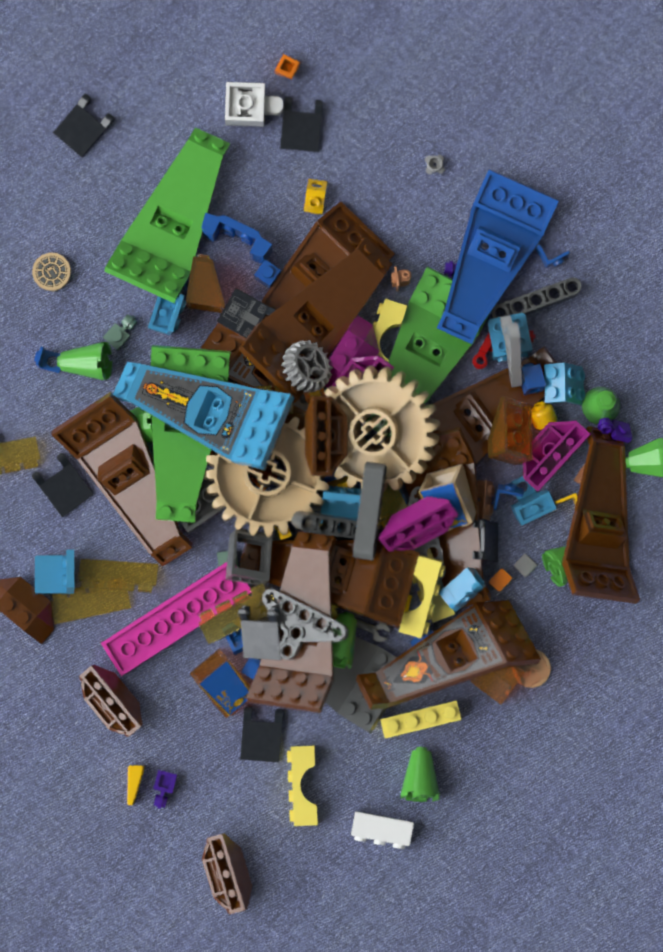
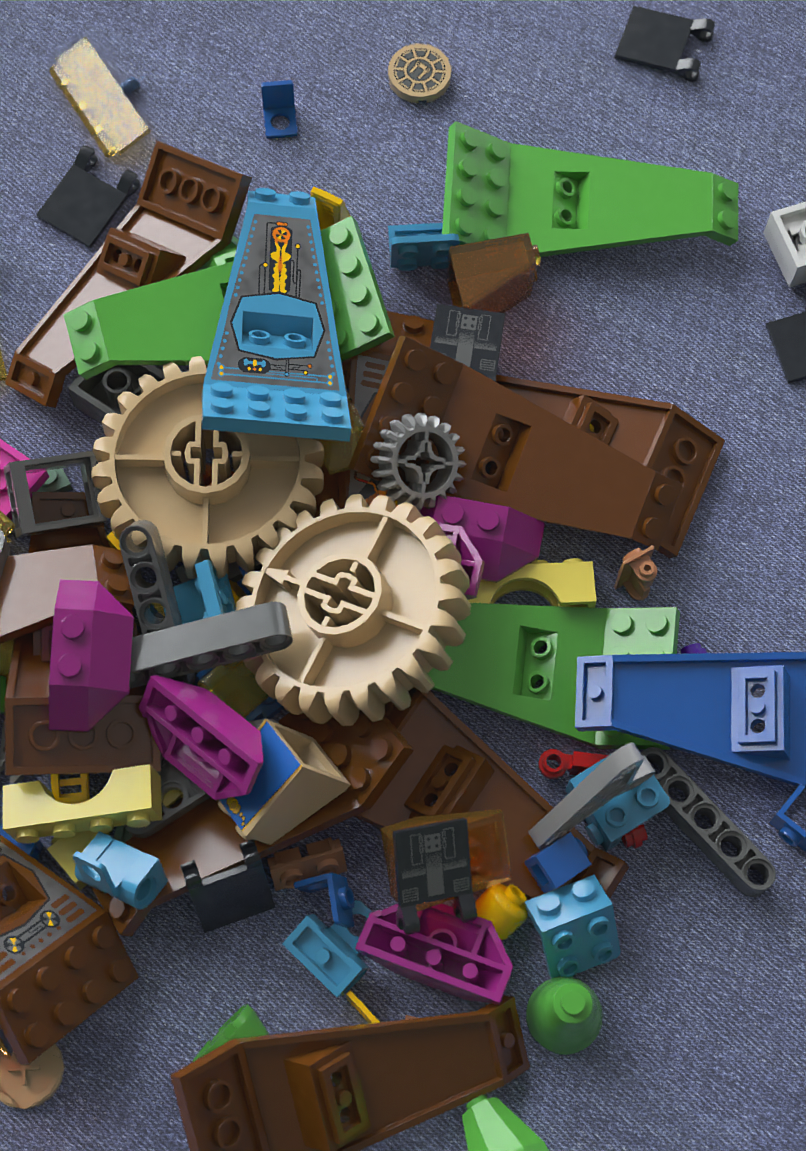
camera: 70 degrees right, 15 degrees down
(87, 361) = (299, 159): bright green cone -> none
(116, 335) = (360, 194): sand green plate -> none
(130, 354) = (329, 208): none -> yellow slope
(213, 224) = (592, 265): blue plate -> none
(267, 274) = (552, 364): blue brick -> none
(315, 196) = (713, 397): yellow bracket -> none
(325, 435) = (304, 518): reddish brown wedge -> none
(356, 565) = (87, 655): none -> magenta wedge
(500, 580) = (169, 944): orange slope -> none
(517, 440) = (430, 867): none -> black flag
(525, 565) = (215, 985): light grey piece -> none
(618, 429) = (531, 1062): dark purple plate -> none

